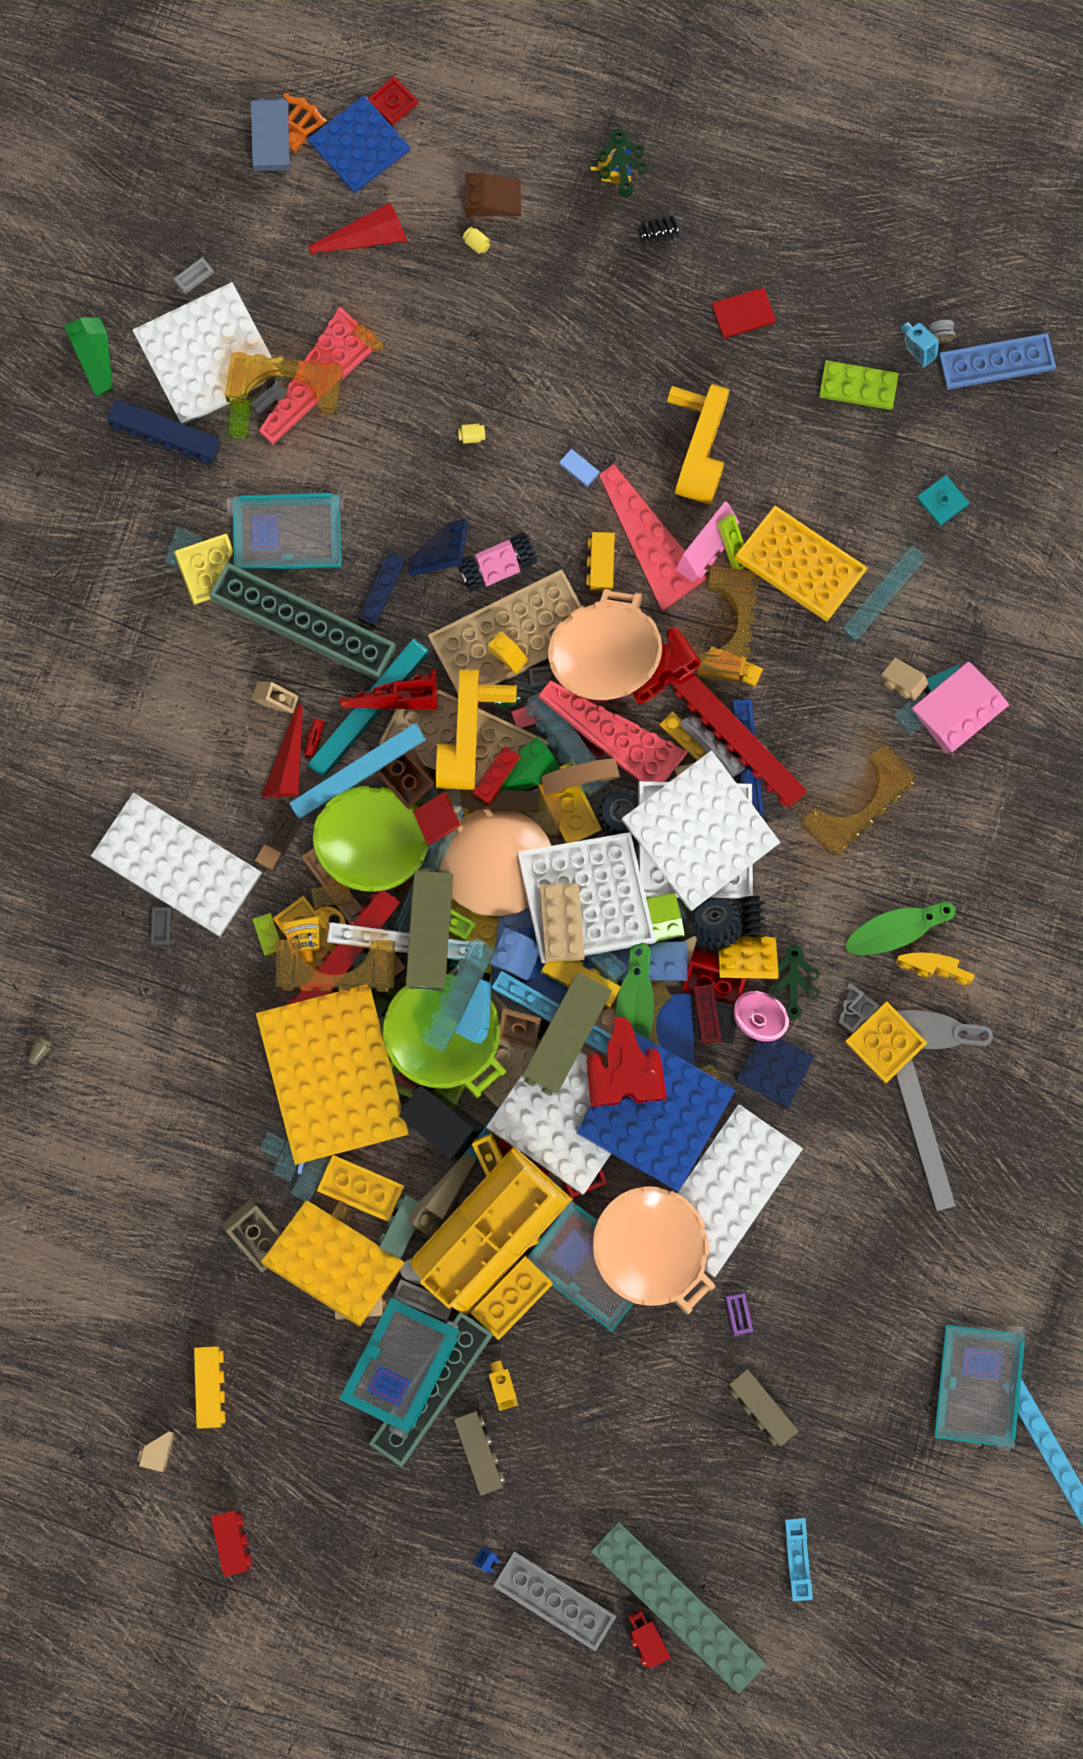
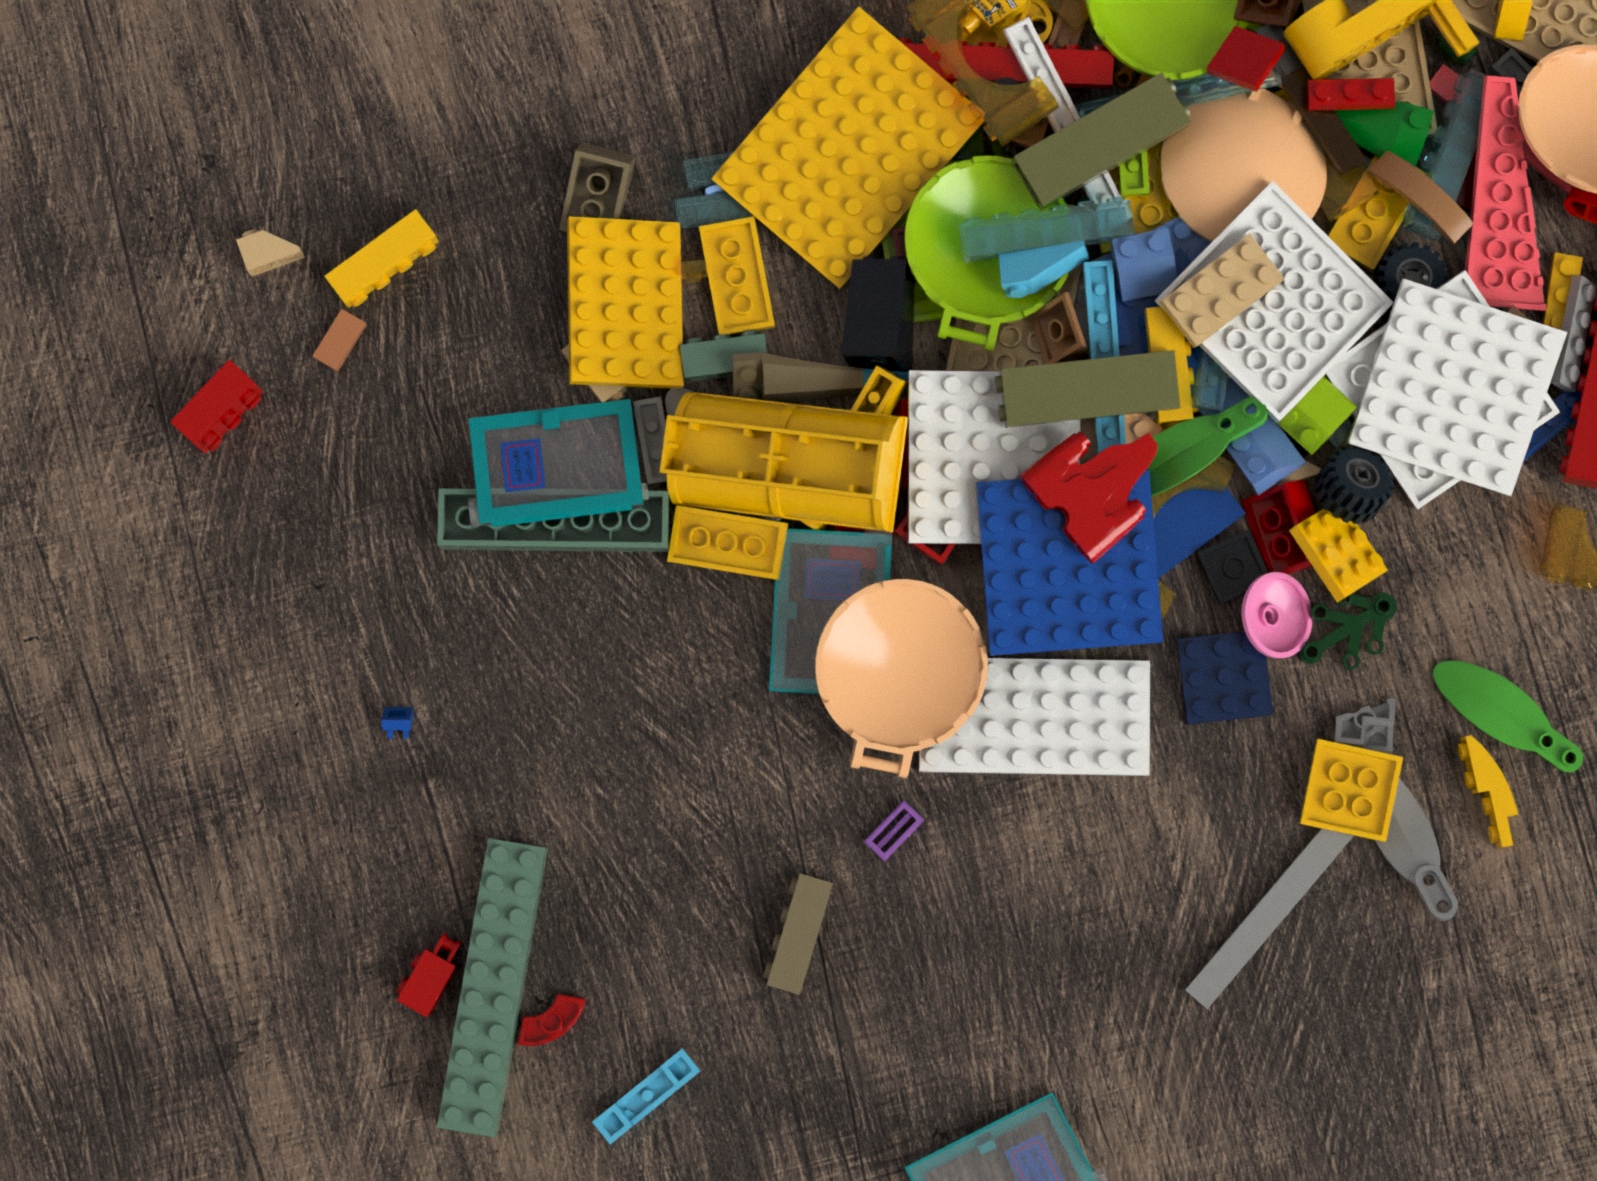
camera: 60 degrees right, 5 degrees up
(238, 1445) = (339, 340): none -> nougat tile
(272, 1145) = (717, 139): clear light blue plate -> none
(478, 1453) = (517, 627): dark tan brick -> none
(504, 1392) = (606, 610): yellow torso -> none
(554, 1601) = (403, 834): light grey plate -> none
(707, 1014) = (1233, 548): dark red plate -> none
(720, 1587) = (551, 1023): none -> red tile
(752, 916) = (1394, 523): black piece -> none

